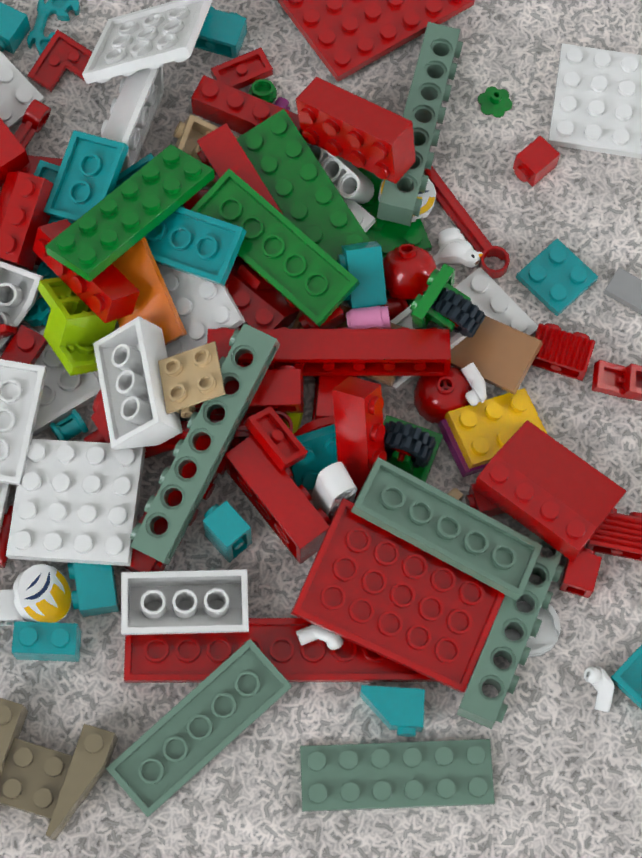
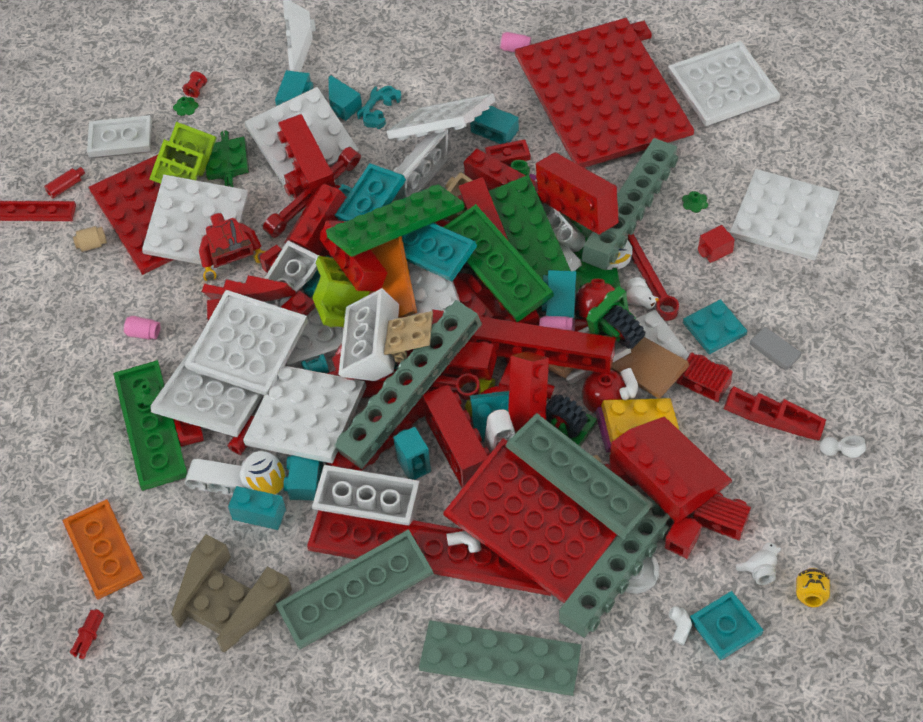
camera: 20 degrees right, 15 degrees down
(58, 56) = (374, 127): red tile -> none
(276, 438) = (463, 389): red plate -> none
(397, 707) = (512, 605): teal slope -> none

